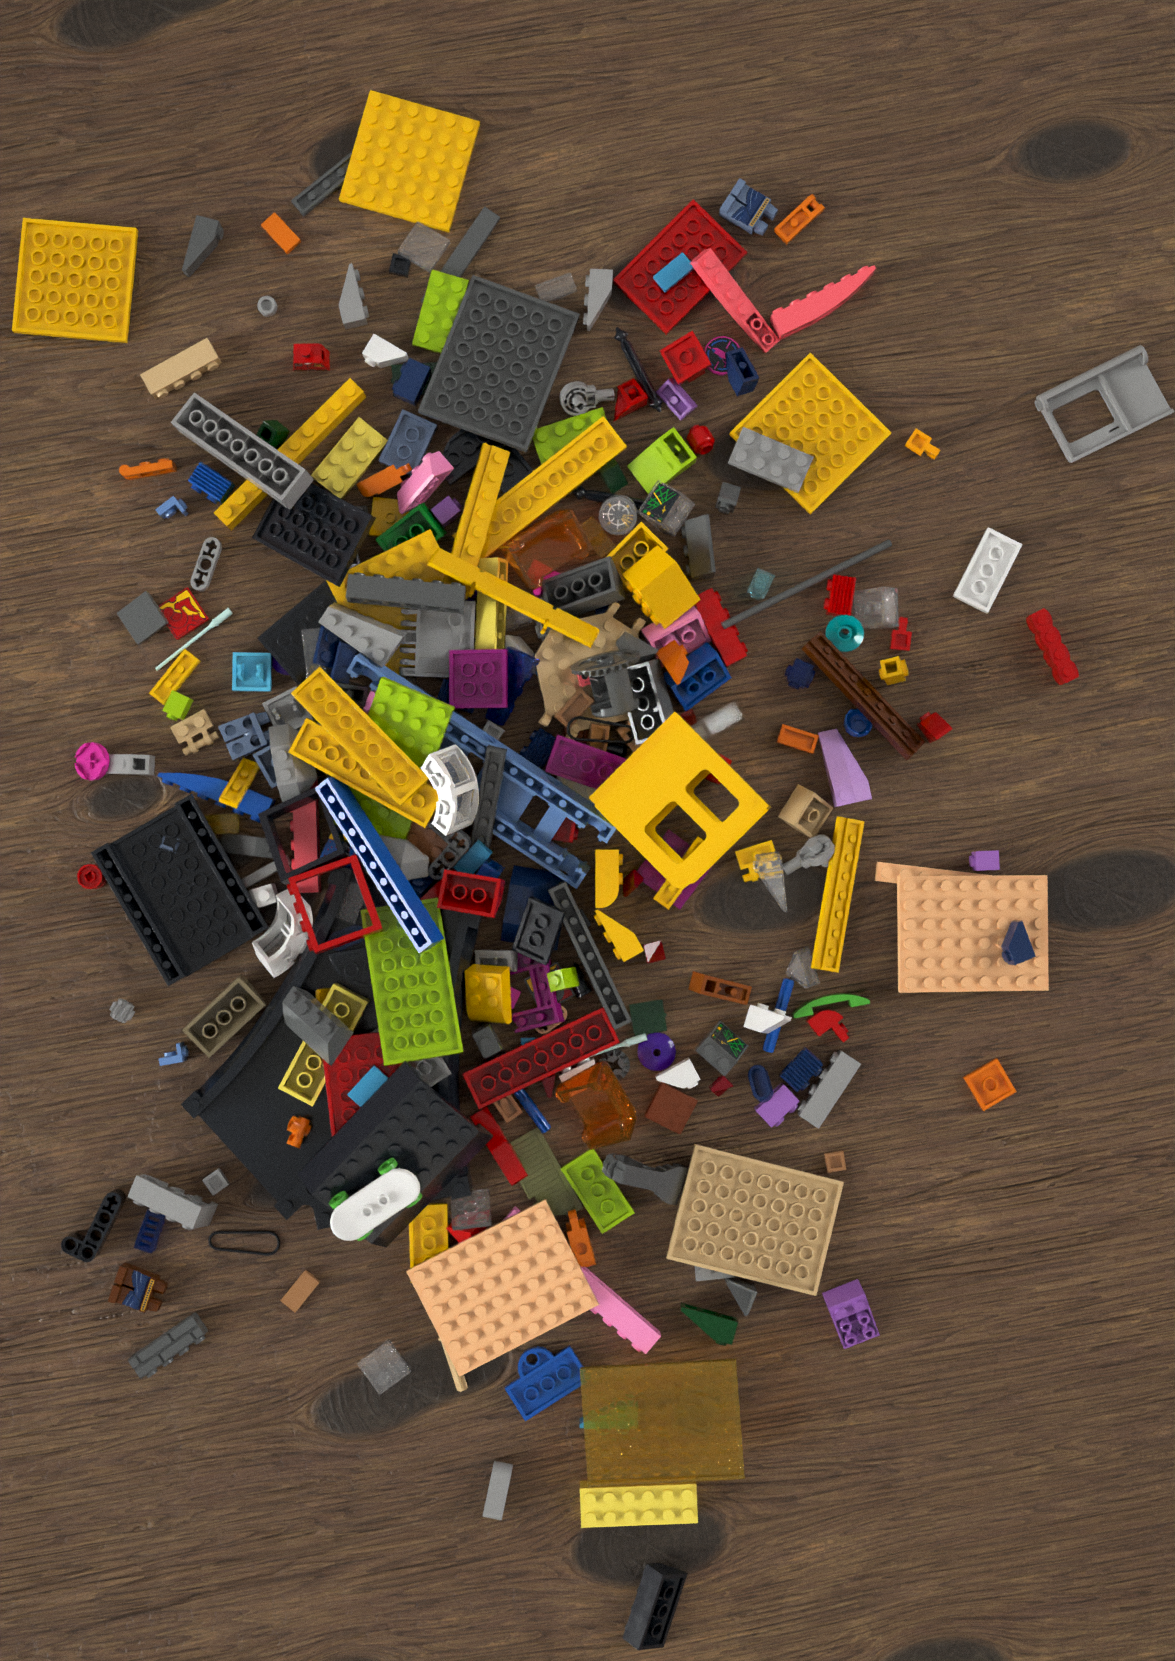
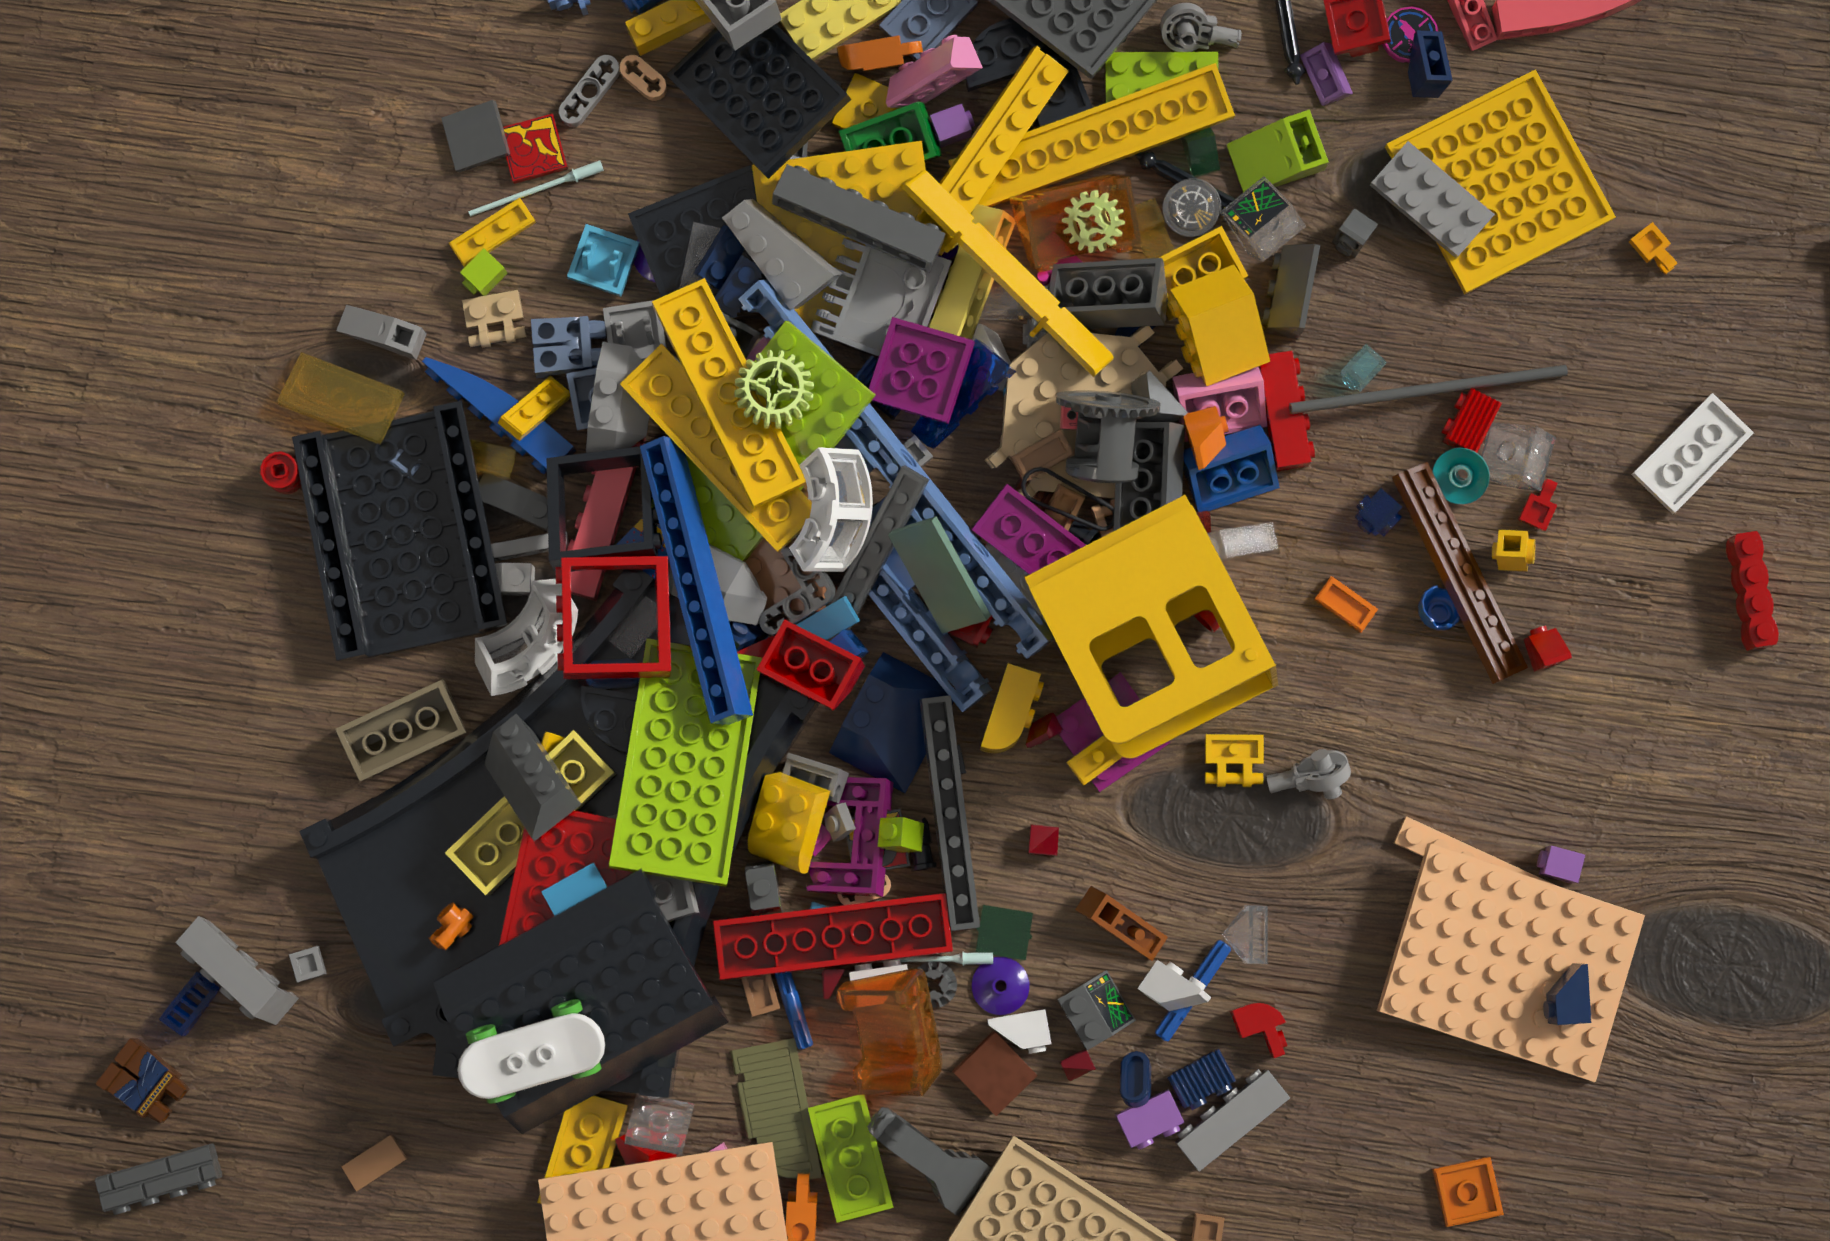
camera: 15 degrees right, 5 degrees down
(92, 761) = (336, 311): dark pink tile -> none
(98, 1223) = (119, 968): black beam -> none
(113, 816) = (340, 398): none -> clear yellow tile
(122, 1010) = (258, 675): light grey gear -> none
(172, 1057) = (304, 765): medium blue bracket -> none
(236, 548) = (647, 73): none -> light nougat beam
(244, 1251) = (312, 1078): black piece -> none
(379, 726) = (763, 387): none -> yellowish green gear
(500, 1147) = (732, 1052): red slope -> none
(521, 983) = (839, 822): none -> light grey plate
(533, 808) = (939, 575): none -> sand green tile
(538, 930) = (889, 752): black plate -> none
(539, 748) = (974, 496): dark blue brick -> none
(549, 544) = (1082, 216): none -> yellowish green gear
(624, 940) = (1006, 806): yellow slope -> none
(629, 399) = (1259, 53): red slope -> none
(700, 439) = (1342, 140): red head -> none
(771, 873) = (1247, 777): clear slope -> none
(805, 811) = (1325, 710): tan slope -> none
(806, 1008) = (1307, 1002): bright green slope -> none
(837, 895) = (1333, 844): yellow plate -> none
(844, 774) = (1397, 676): lavender wedge -> none

